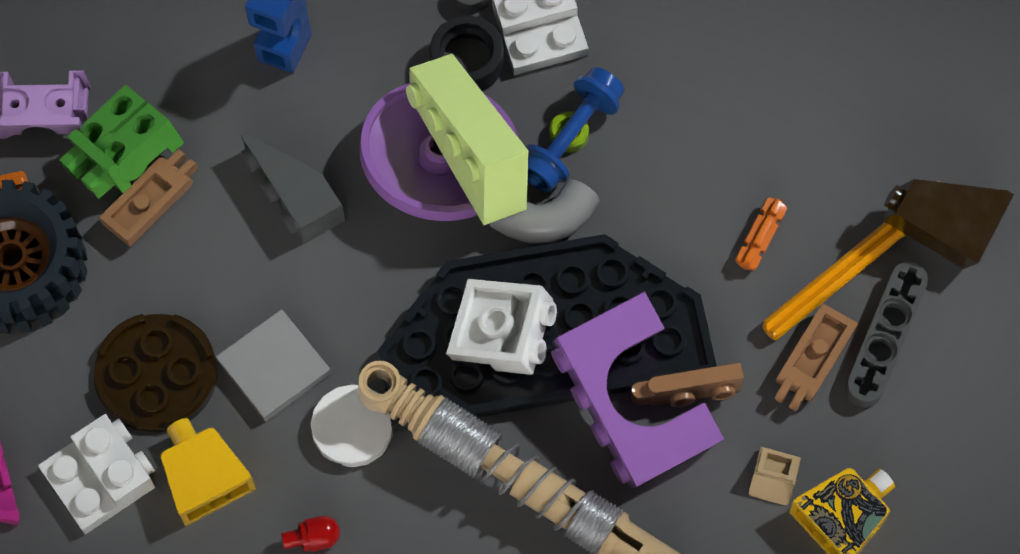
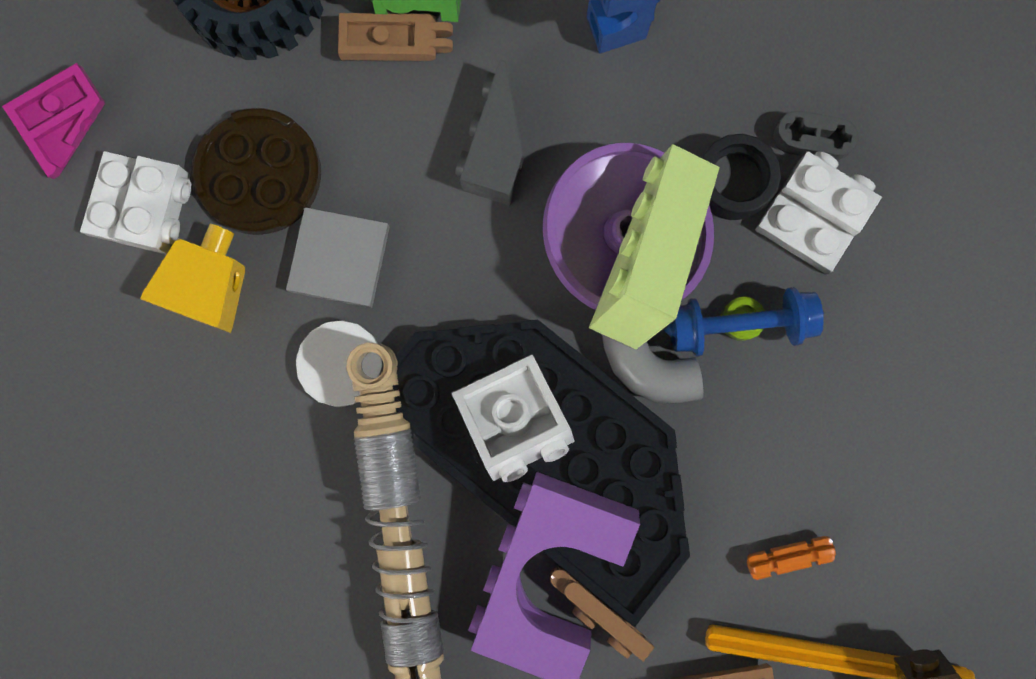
camera: 50 degrees right, 15 degrees up
(313, 534) = (223, 412): red cylinder -> none

